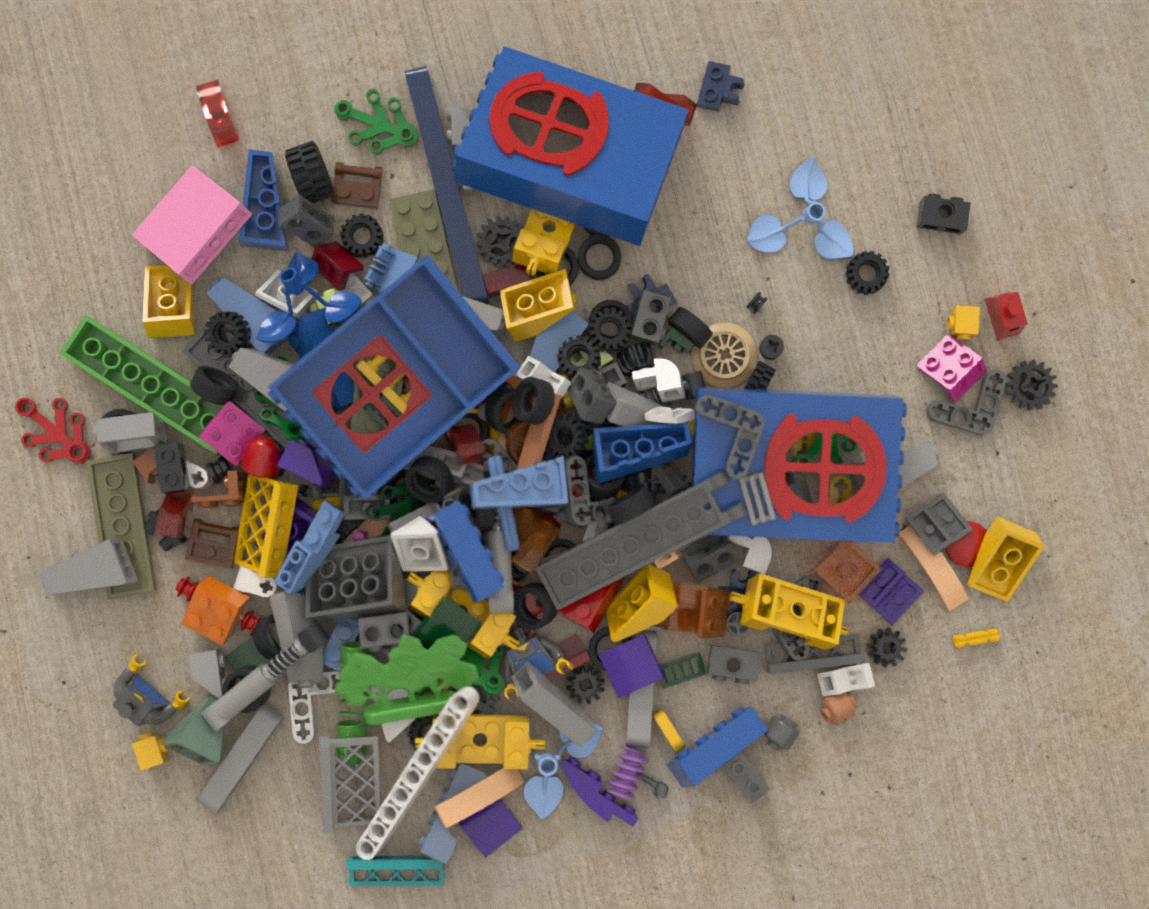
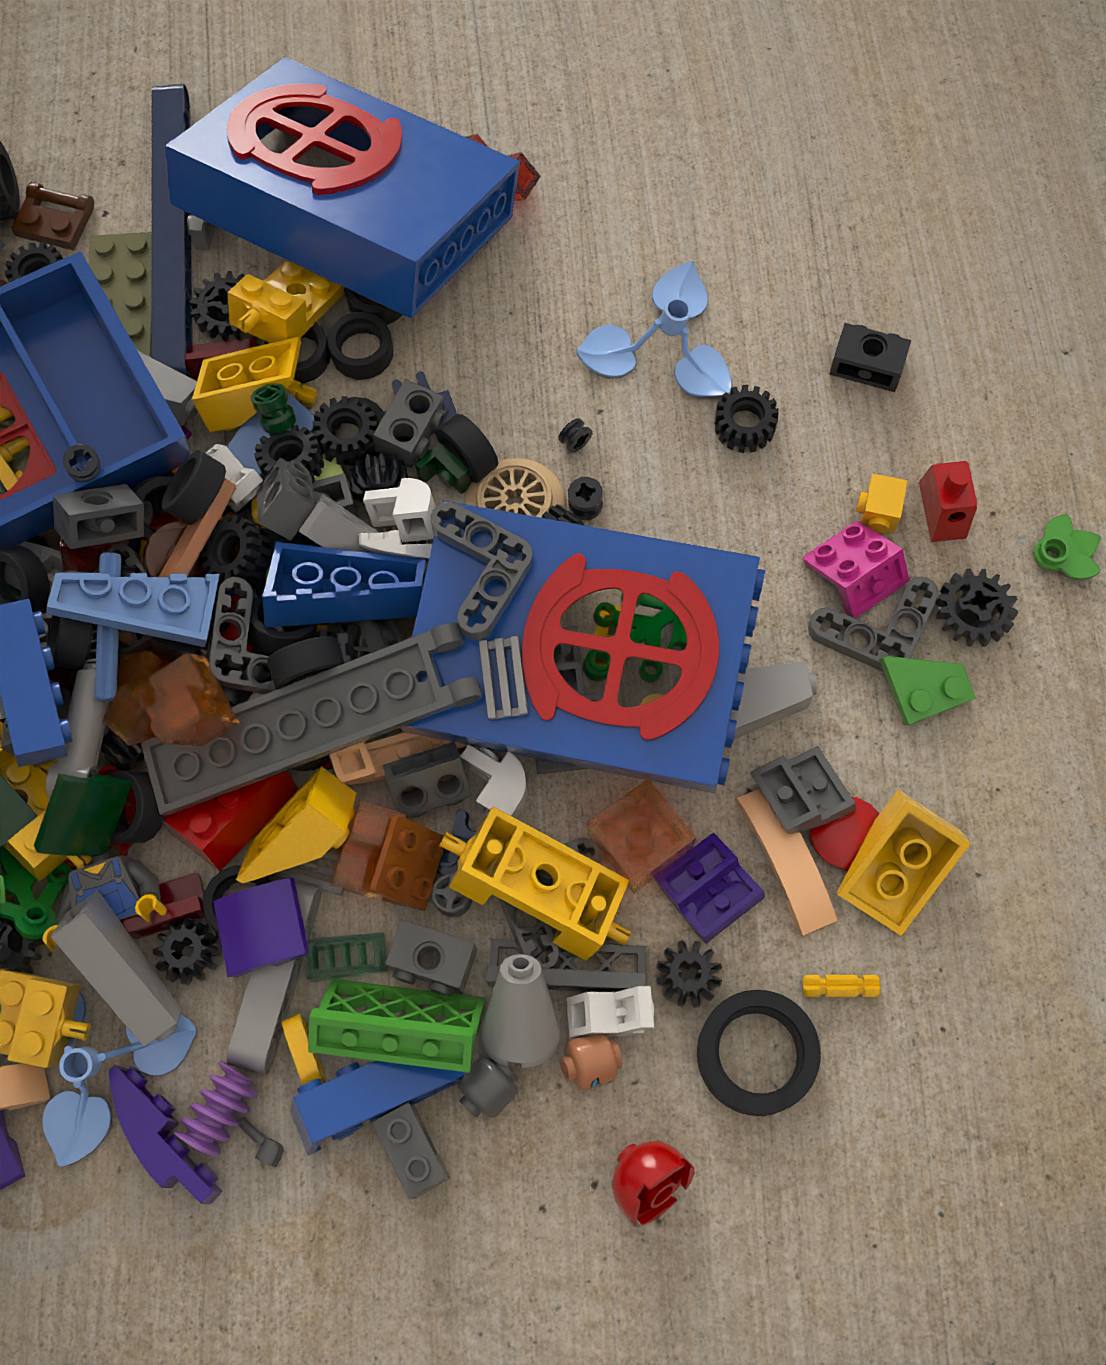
camera: 15 degrees right, 15 degrees down
(379, 124) = (134, 163): green plant -> none
(456, 399) = (70, 459): none -> black bush
(479, 431) = (98, 516): none -> dark grey brick
(515, 622) = (82, 815): none -> dark green slope
(564, 328) = (272, 404): none -> dark green wheel
(570, 544) = (189, 703): none -> clear orange brick
(718, 87) = (577, 159): dark blue plate -> none
(724, 718) = (403, 1040): none -> bright green fence
(795, 693) = (520, 1015): none -> light grey cone
(882, 768) = (648, 1178): none -> red cylinder
(962, 686) = (799, 1027): none -> black tyre
(1005, 443) = (925, 686): none -> bright green wing
(1086, 332) = (1071, 549): none -> bright green plate

